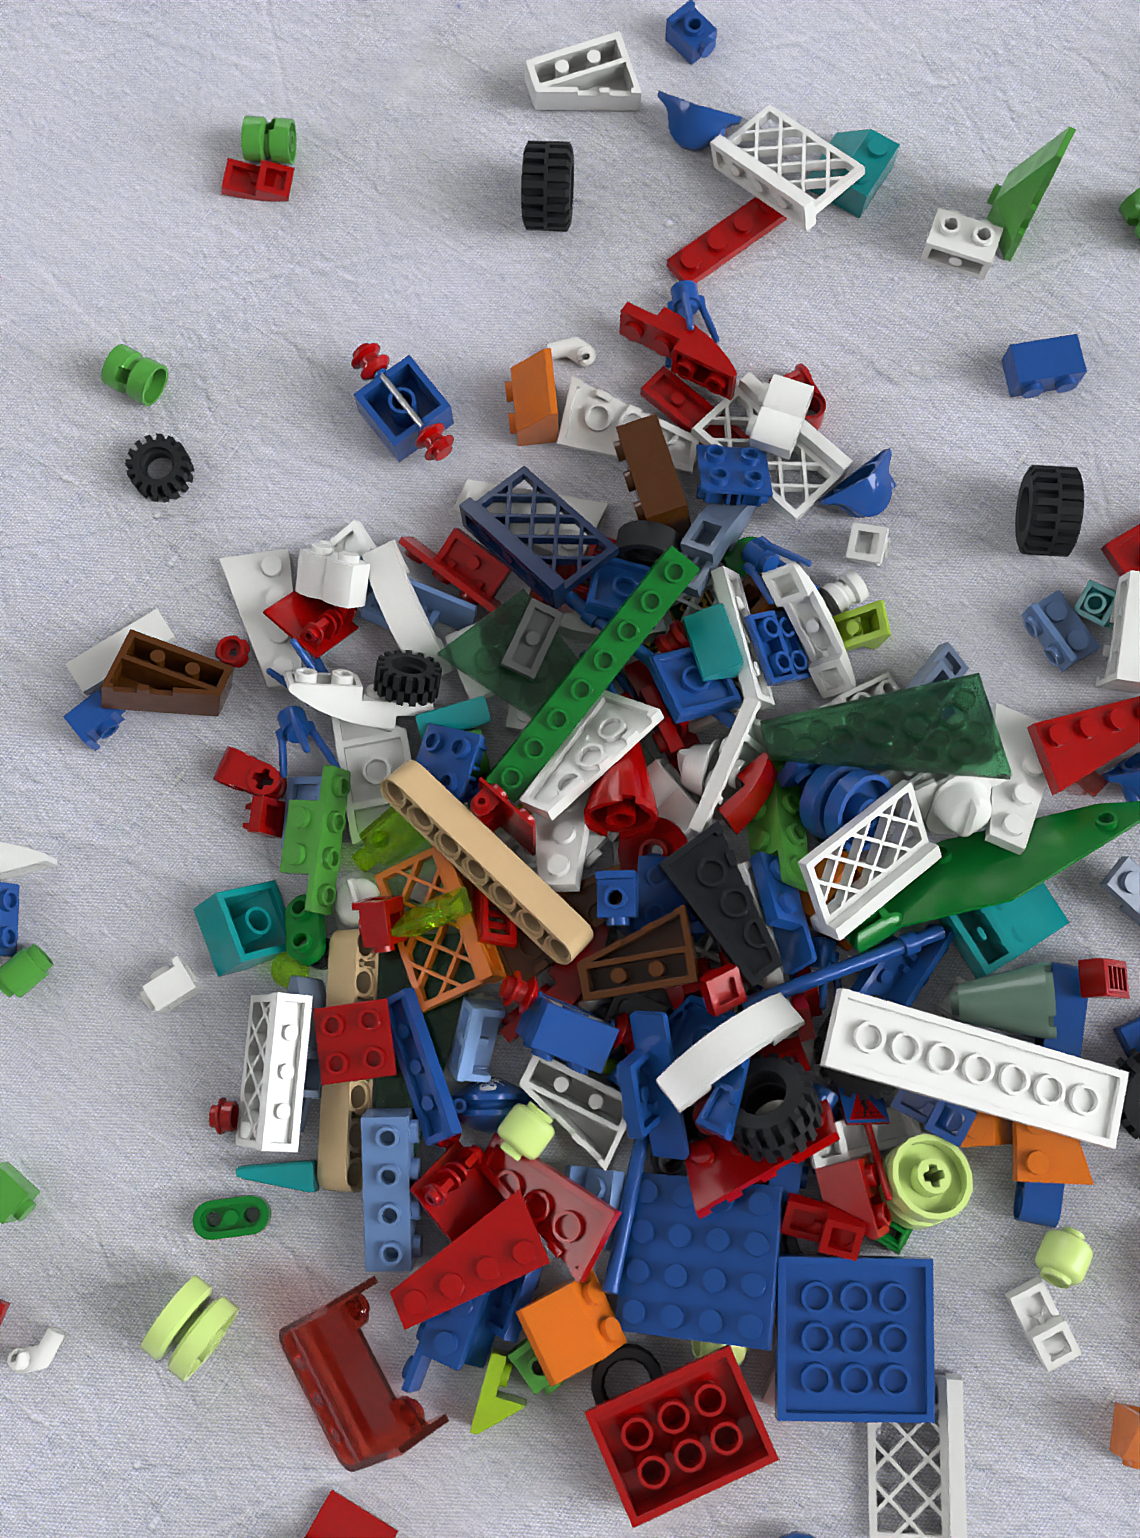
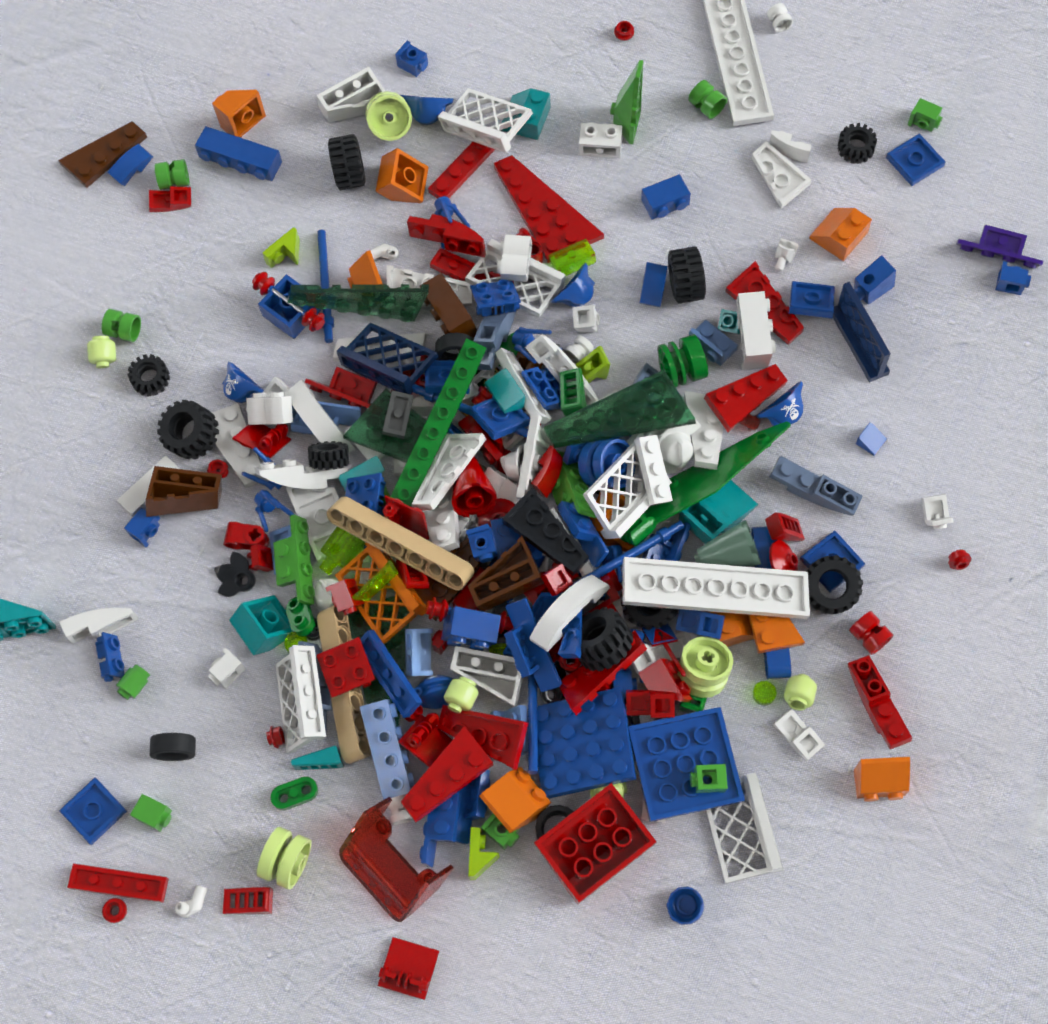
camera: 10 degrees left, 10 degrees down
(59, 1098) = (172, 746): none -> black tyre
(95, 411) = (101, 351): none -> yellowish green head
(151, 1383) = (266, 908): none -> red slope
(167, 80) = (99, 156): none -> reddish brown wing
(175, 569) = (174, 423): none -> black tyre
(212, 102) = (133, 160): none -> blue slope
(217, 831) = (232, 575): none -> black plate
(296, 519) = (239, 385): none -> blue hat
(380, 130) = (238, 154): none -> blue brick
(387, 1280) = (398, 812): none -> white wheel
(396, 58) = (239, 111): none -> orange slope
(420, 303) = (285, 246): none -> lime slope
(461, 444) = (324, 277): none -> blue bar
(520, 429) = (366, 300): none -> clear green wing
(629, 231) = (401, 177): none -> orange slope
(632, 101) = (386, 103): none -> yellowish green wheel
(816, 695) = (572, 405): none -> green slope
(843, 345) = (545, 213): none -> red wing
(870, 433) = (573, 257): none -> clear neon green slope
(898, 1392) = (715, 772): none -> bright green brick
(919, 836) = (653, 470): none -> white plate
(989, 510) = (653, 284): none -> blue slope
(1004, 1239) = (764, 693): none -> clear neon green tile
(1009, 654) = (686, 360): none -> green wheel
(1045, 57) = (624, 30): none -> red plate
(1090, 1031) = (782, 556): none -> red dish

